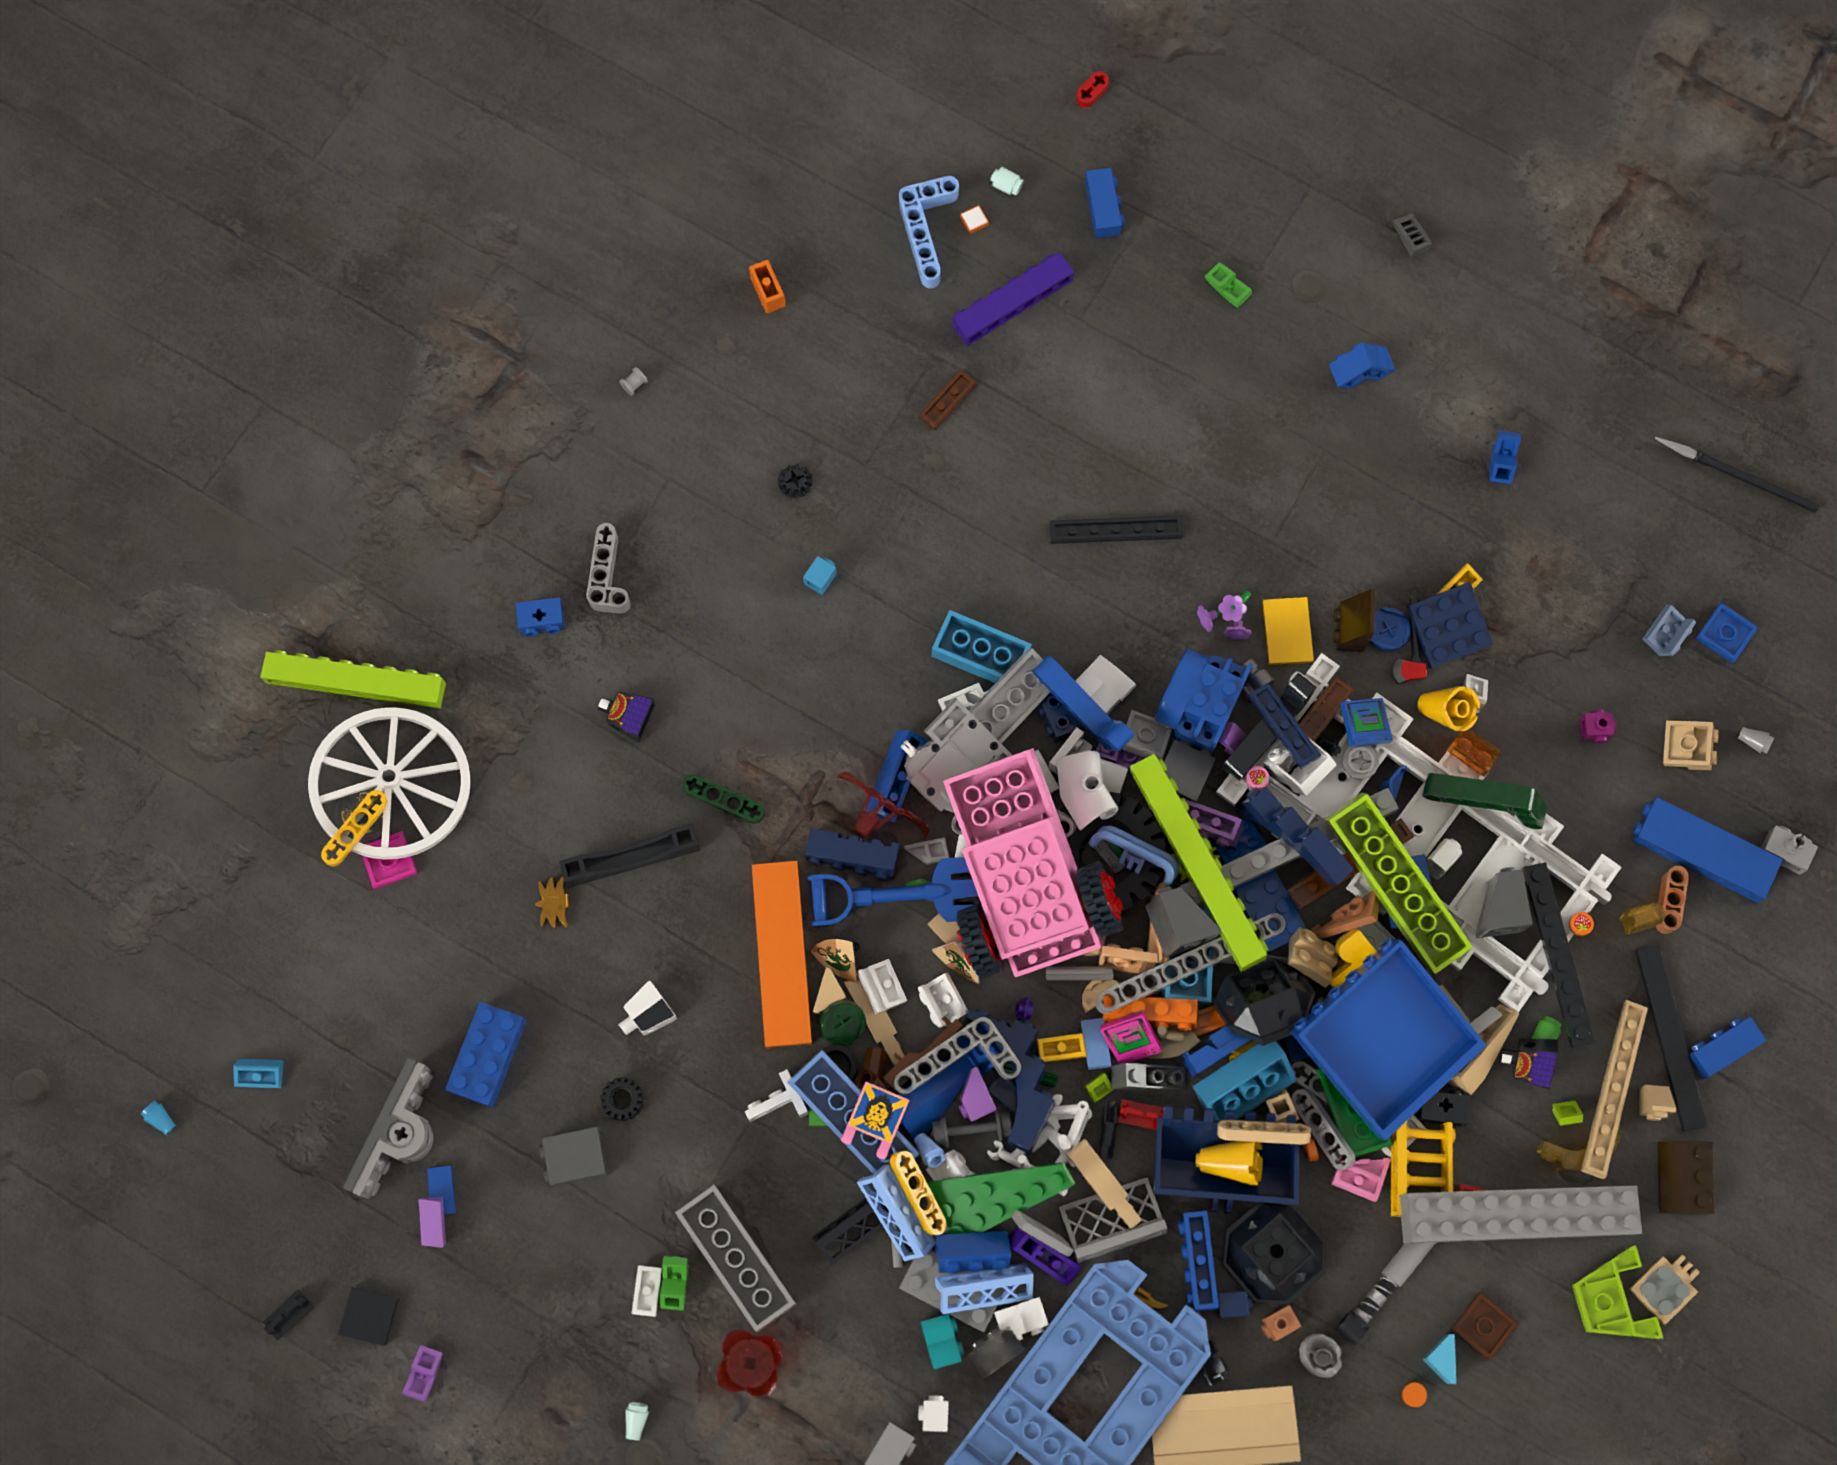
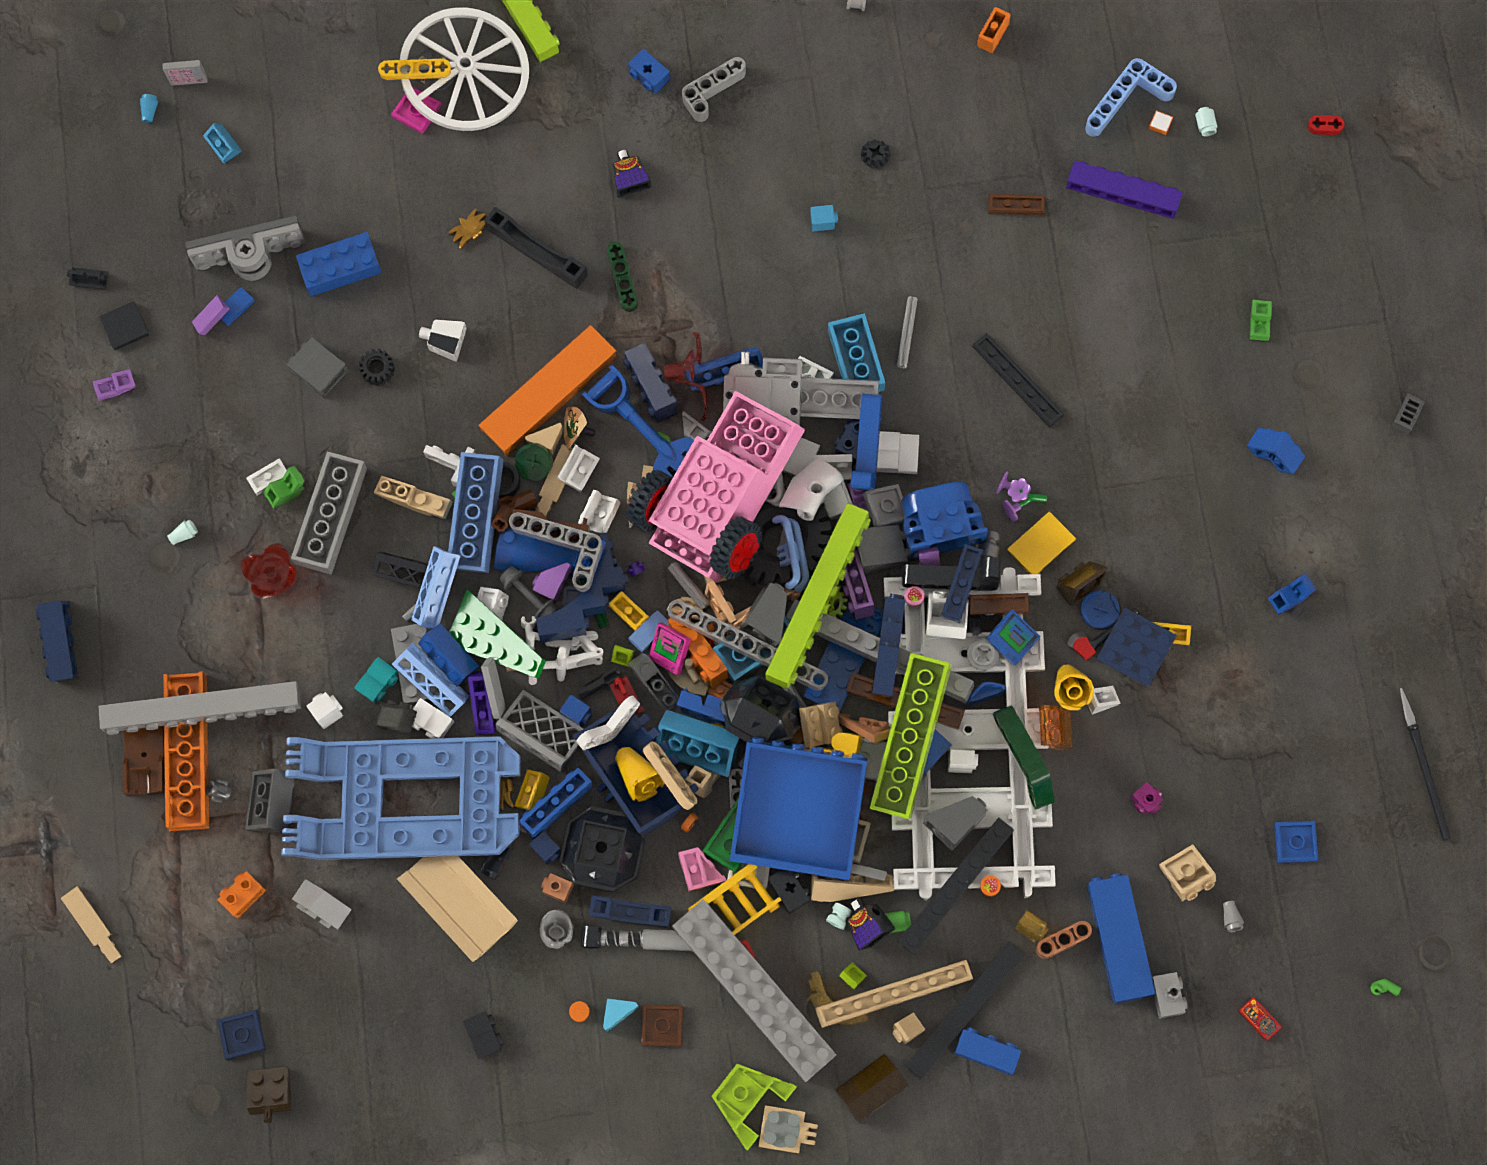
camera: 55 degrees right, 0 degrees up
(156, 1053) = (185, 72): none -> light grey tile
(785, 1165) = (413, 498): none -> tan slope
(877, 1115) = (485, 523): flag -> none
(921, 1190) = (459, 590): yellow beam -> none
(929, 1151) = (491, 578): light blue cone -> none
(991, 588) = (907, 332): none -> light grey axle
(1103, 1182) = (557, 701): tan piece -> none
(1104, 202) = (1247, 194): blue brick -> none
(1124, 1170) = (576, 711): none -> blue brick
(1164, 1275) = (532, 789): none -> yellow slope
(1170, 1150) = (609, 731): none -> white beam
(1320, 1131) = (698, 844): light grey beam -> none
(1355, 1271) = (629, 912): none -> dark blue slope
(1502, 1081) = (839, 916): none -> light aqua wheel
(1668, 631) = (1260, 799): sand blue bracket -> none

